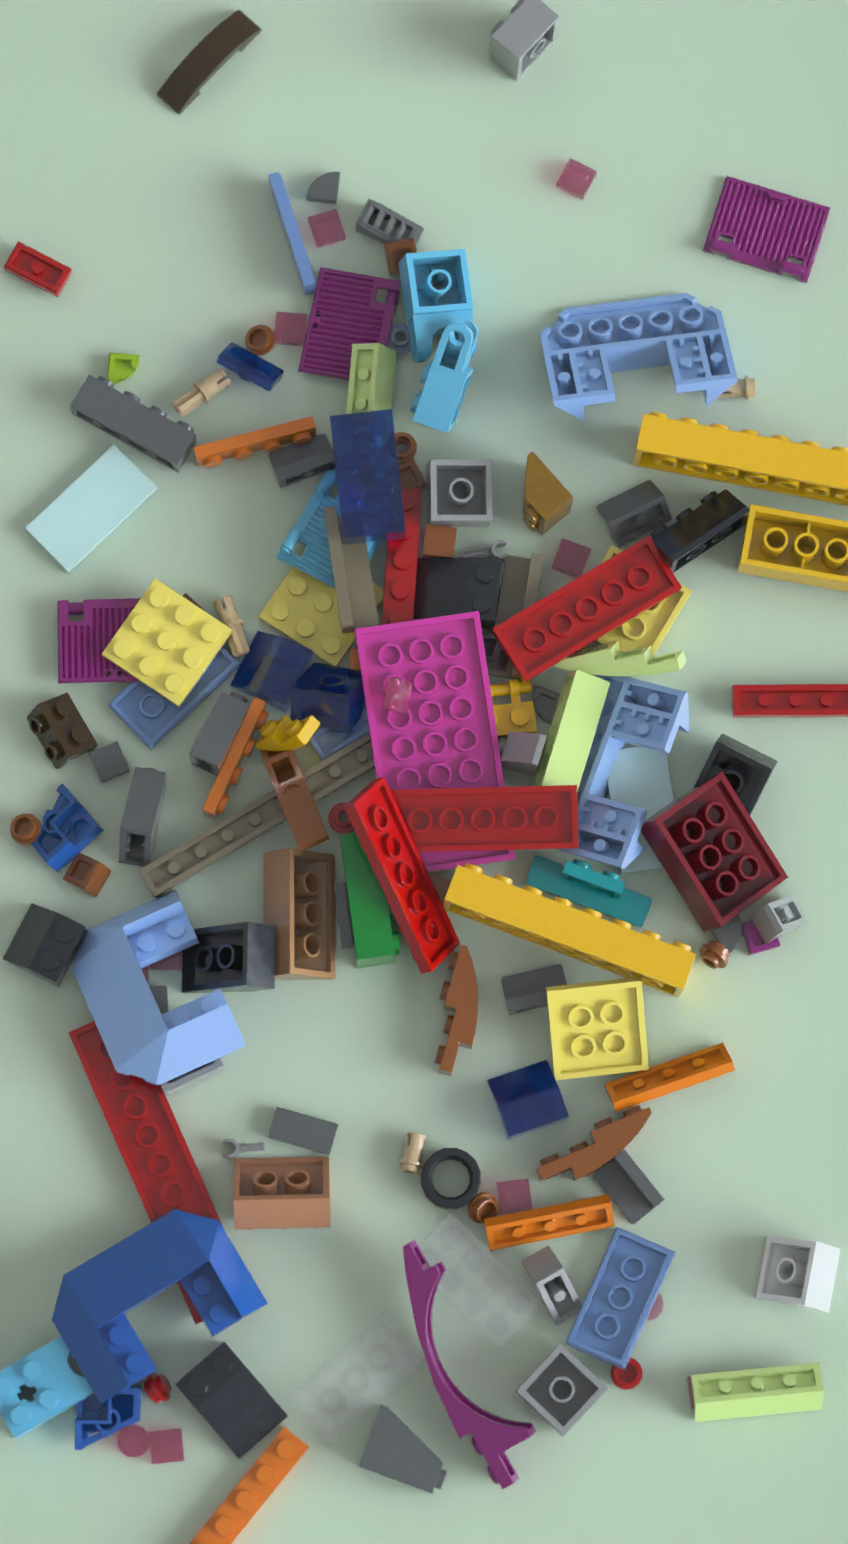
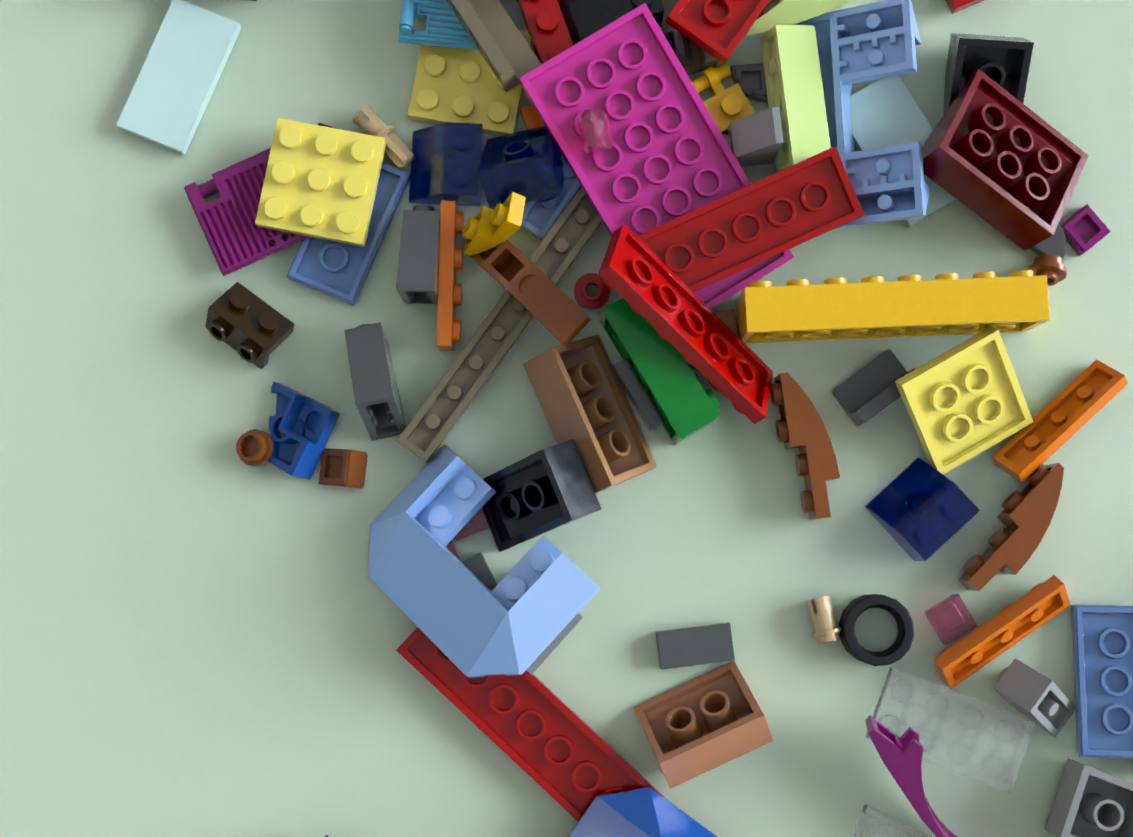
camera: 20 degrees left, 5 degrees up
(45, 944) = (330, 564): black slope -> none
(109, 762) = (315, 337): dark grey tile -> none
(242, 1147) = (639, 693): light grey hand -> none
(482, 1206) = (925, 647): dark orange plate -> none
(589, 889) = (885, 255): teal bracket -> none
(628, 1187) = (1071, 557): dark grey panel -> none
(778, 918) = (1099, 206): light grey slope -> none

